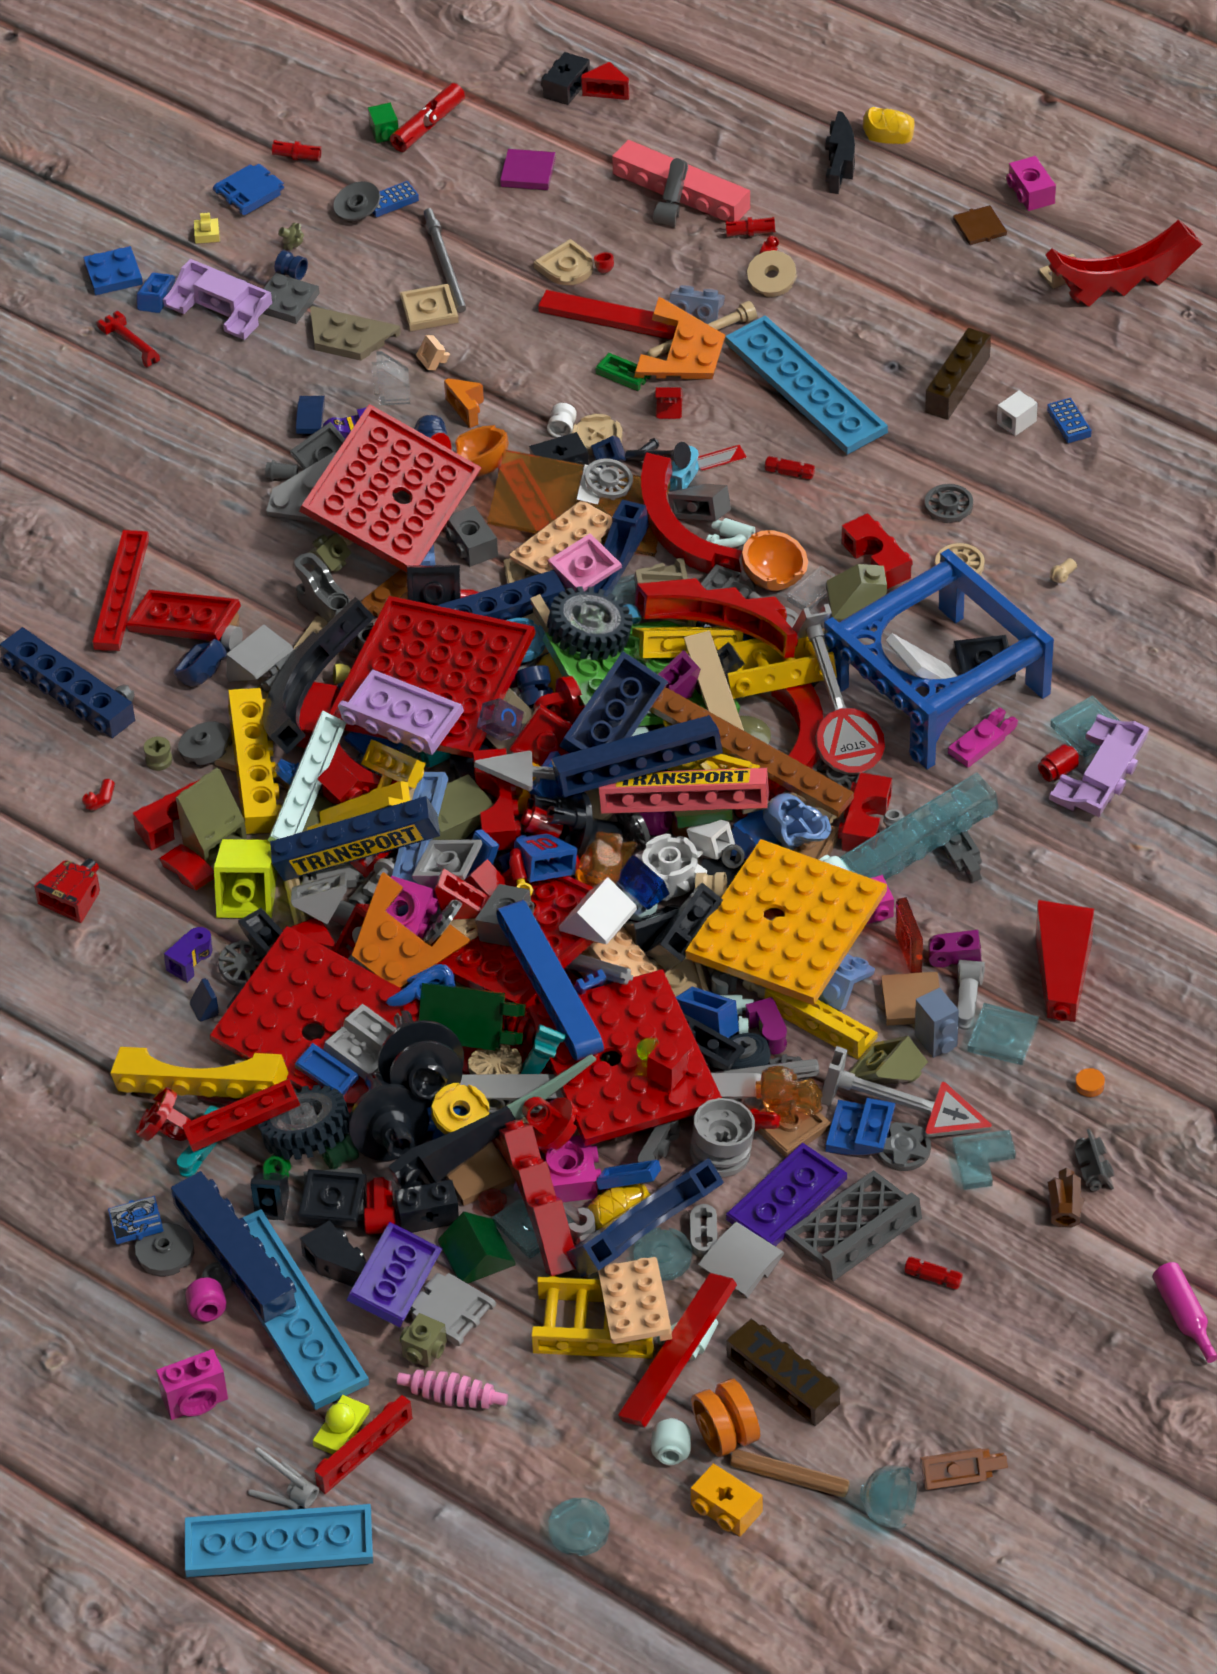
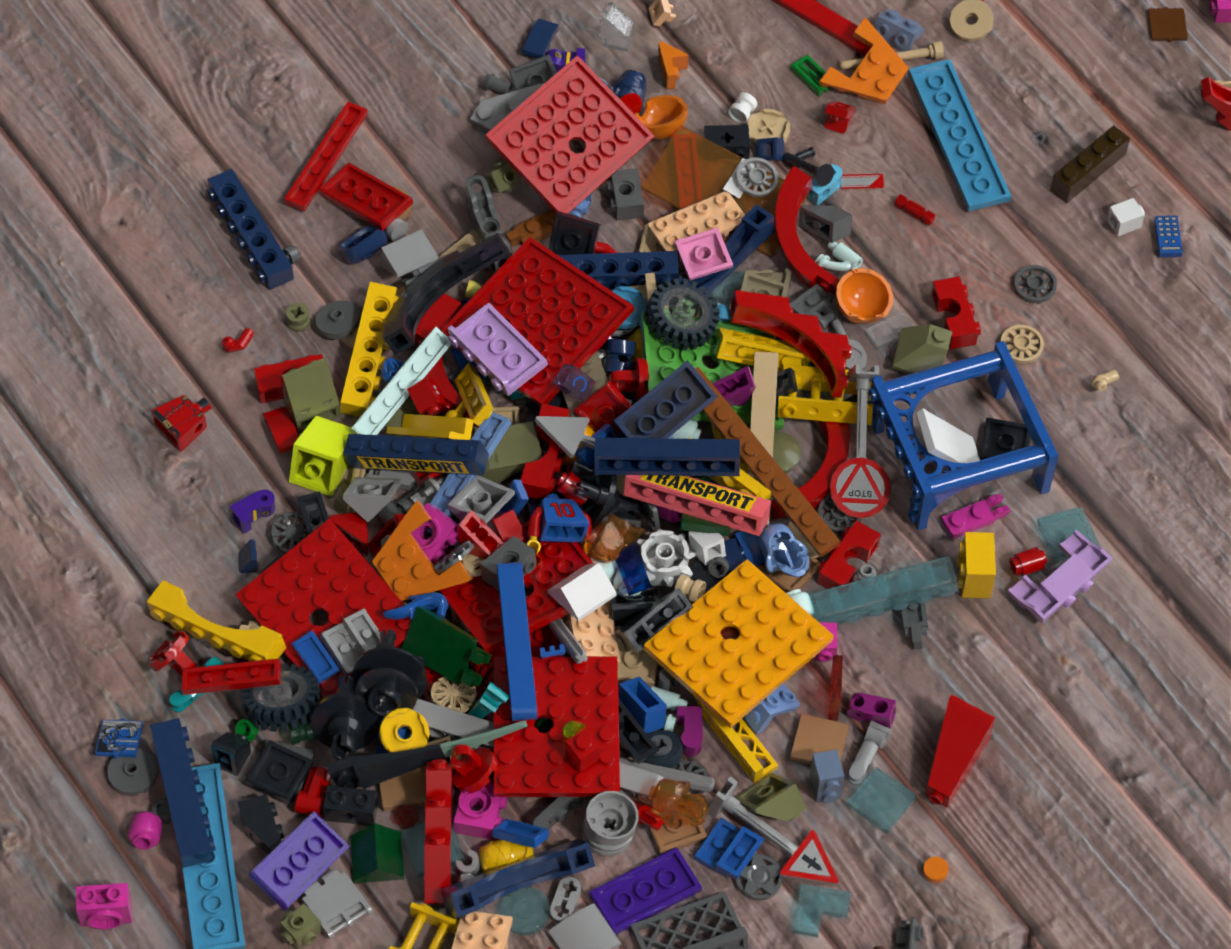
camera: 15 degrees right, 10 degrees up
(1009, 776) = (976, 565): none -> yellow brick

